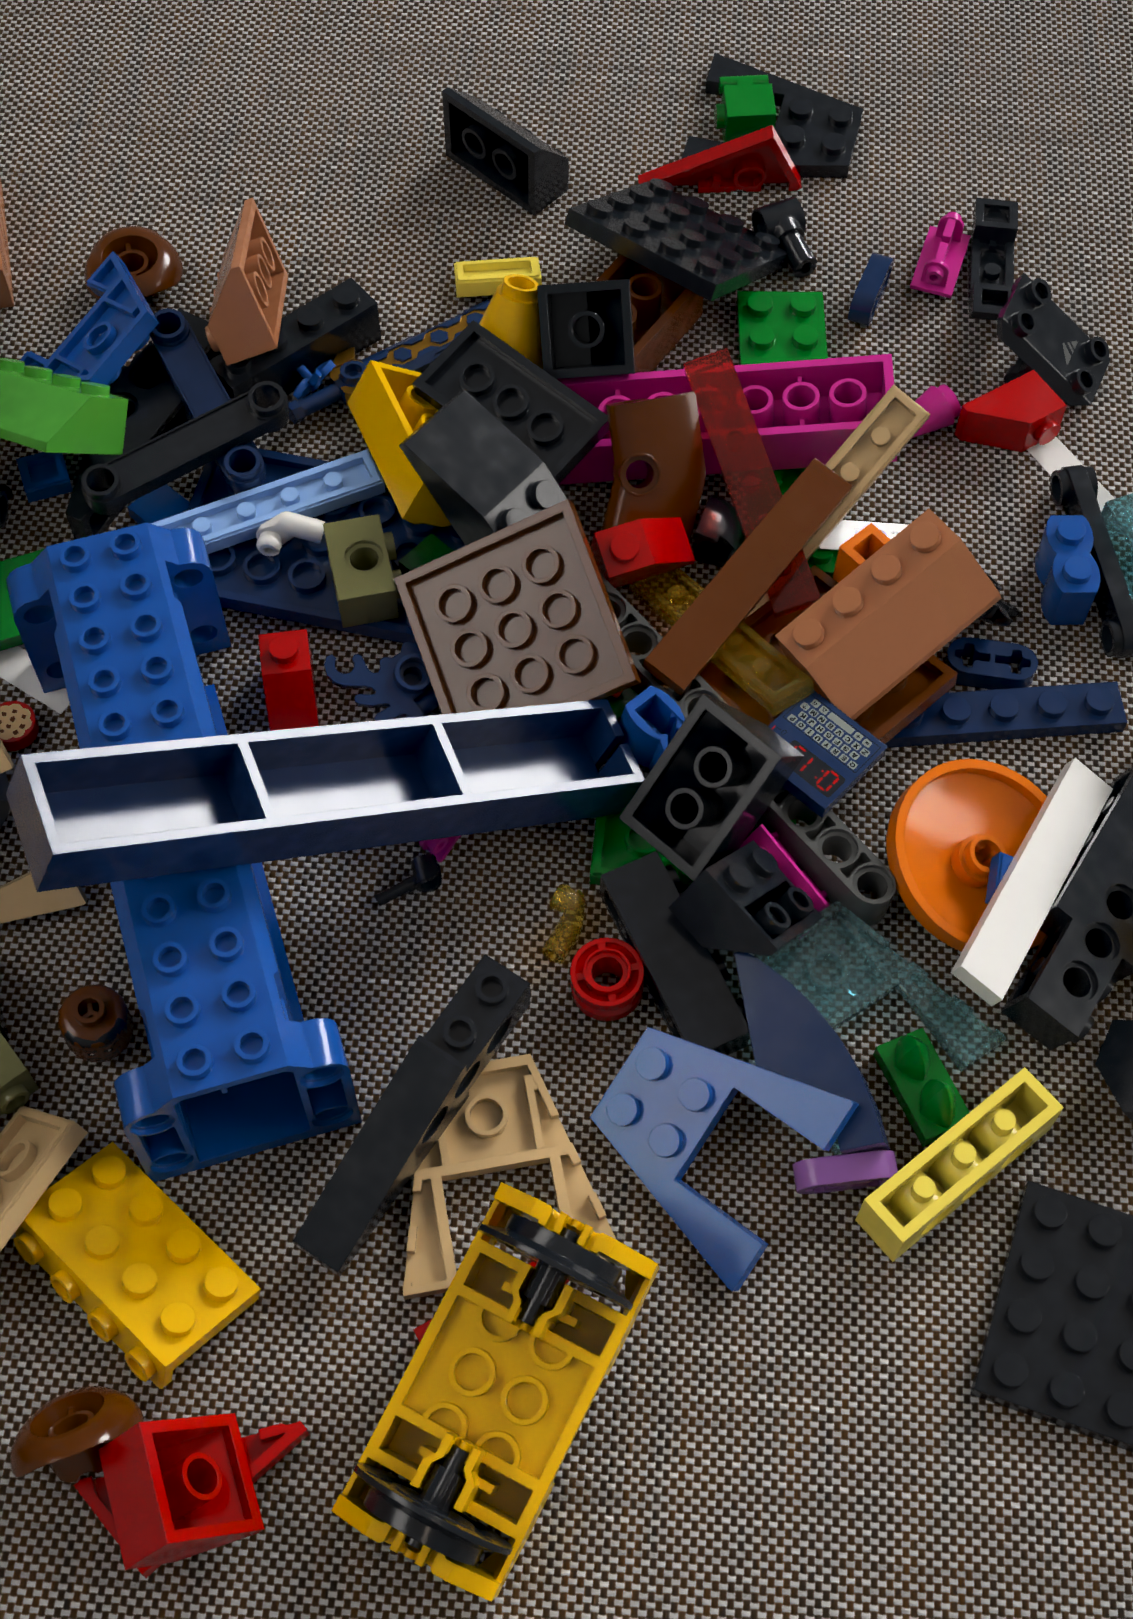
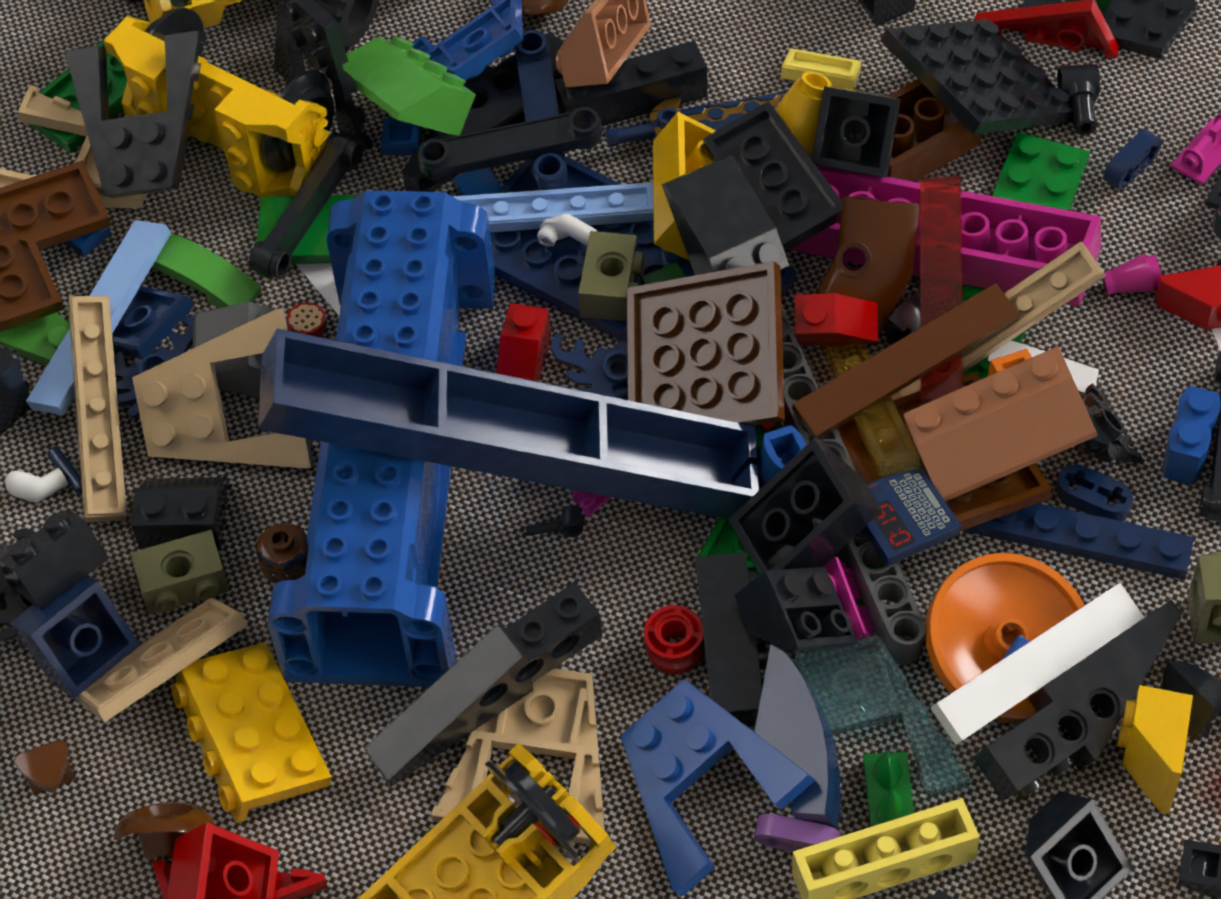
camera: 25 degrees right, 5 degrees down
(312, 381) = (634, 116): blue plant -> none
(569, 926) = (666, 590): clear yellow arm -> none

